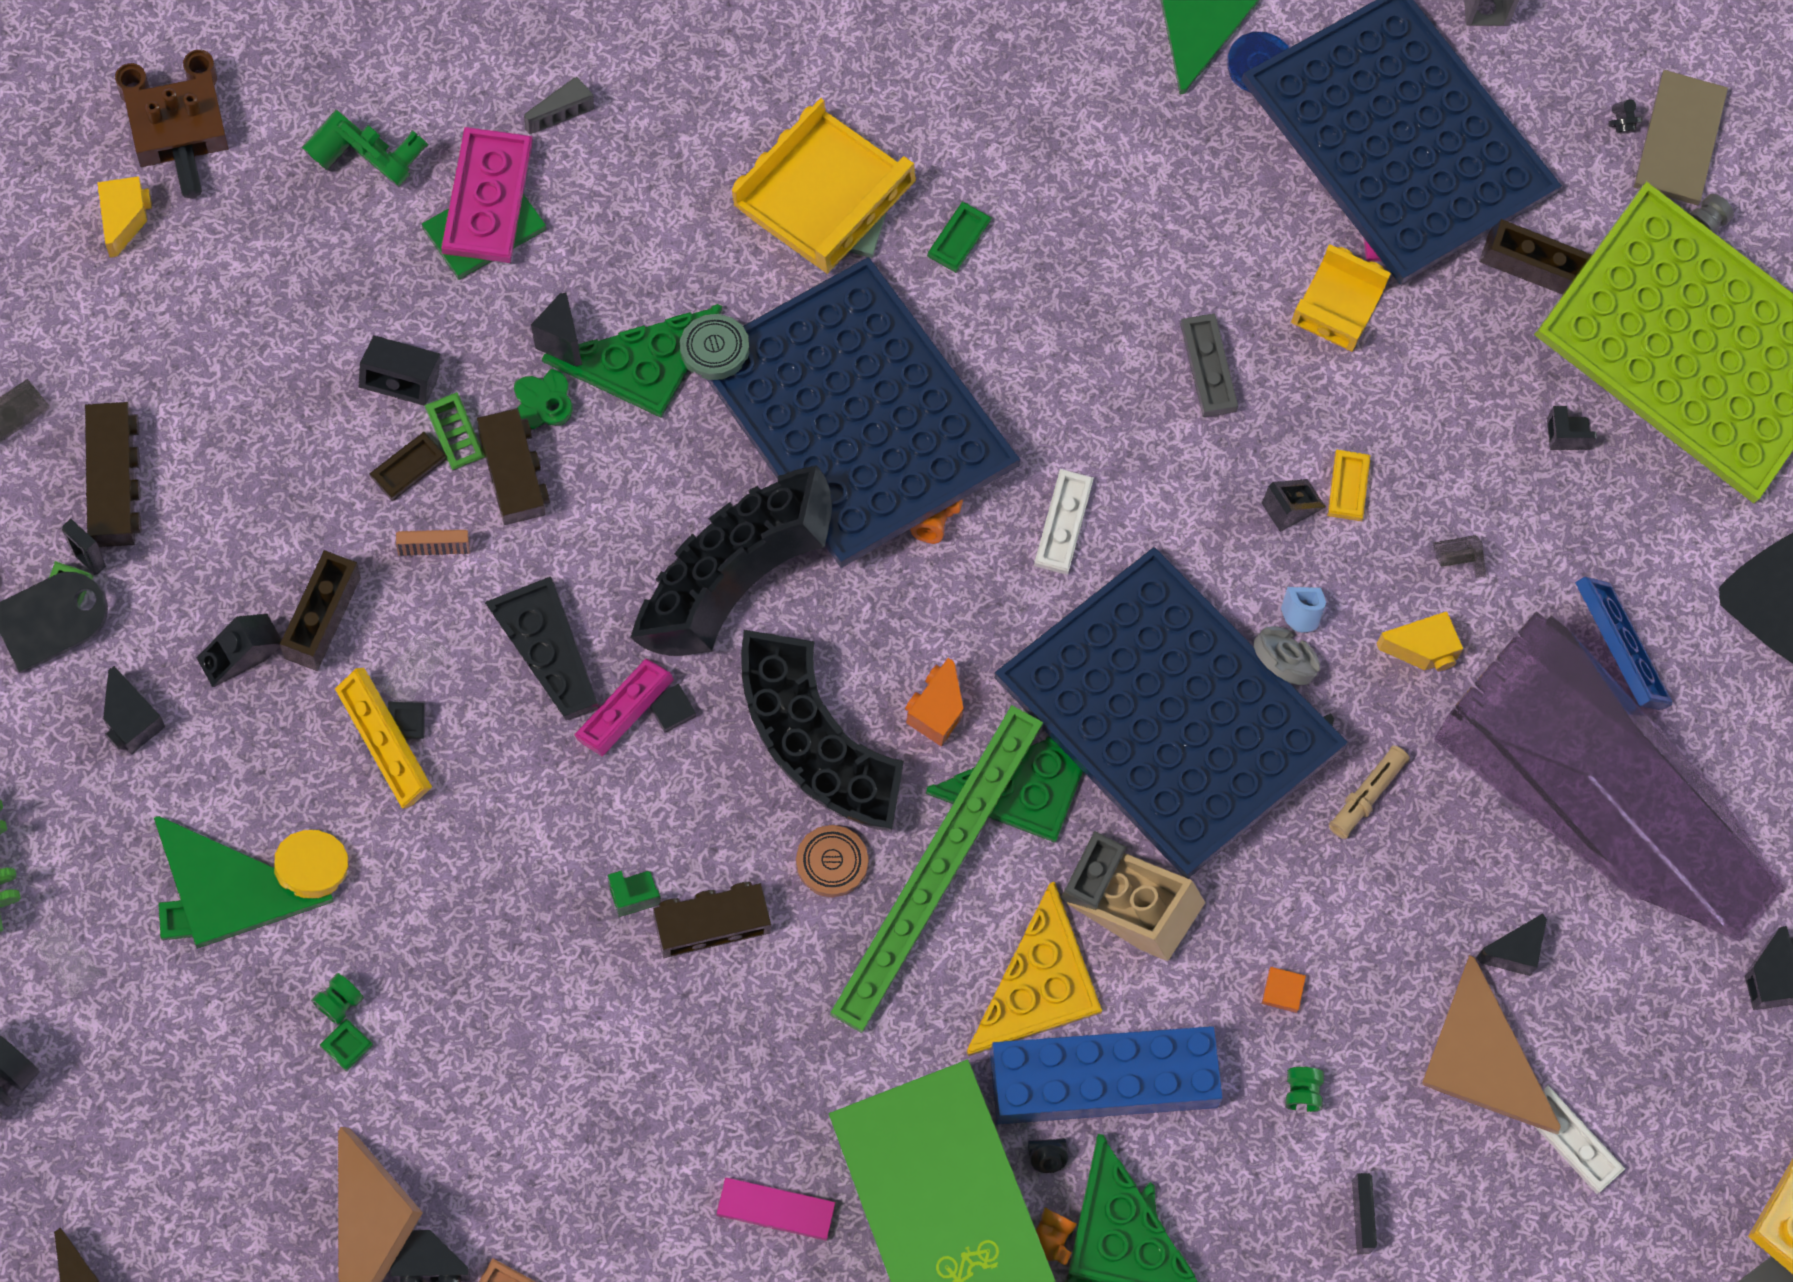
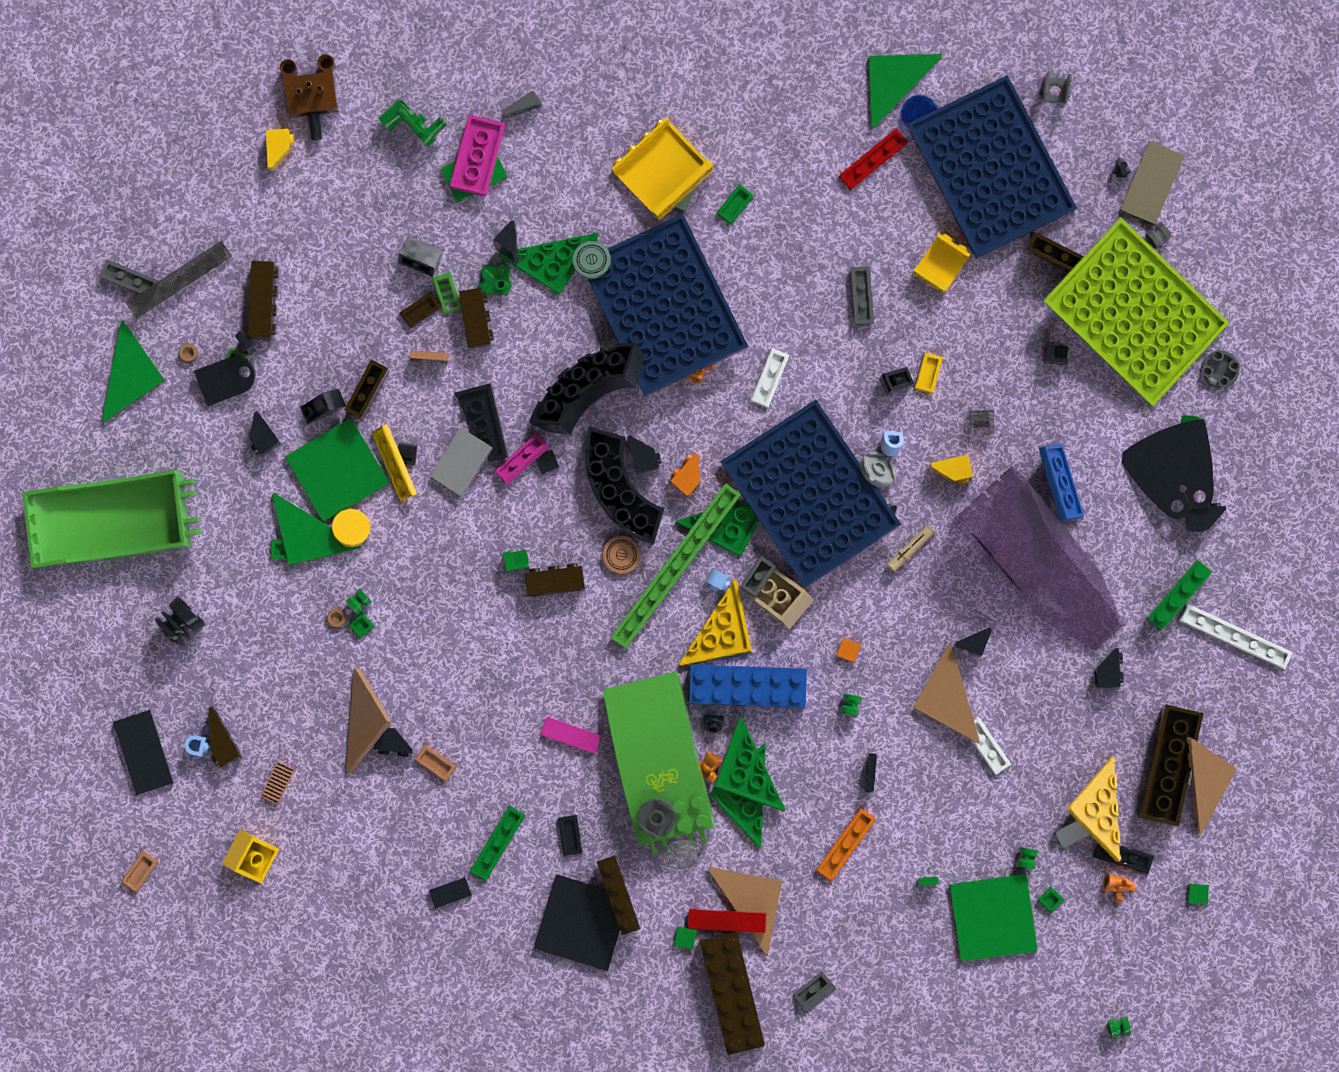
camera: 15 degrees right, 15 degrees up
(276, 762) = (337, 469): none -> green tile
(296, 1036) = (336, 618): none -> medium nougat tile
(511, 722) = (461, 462): none -> light grey tile
(850, 677) = (643, 456): none -> black slope
(1019, 887) = (717, 580): none -> light blue plate
(1191, 142) = (873, 159): none -> red tile

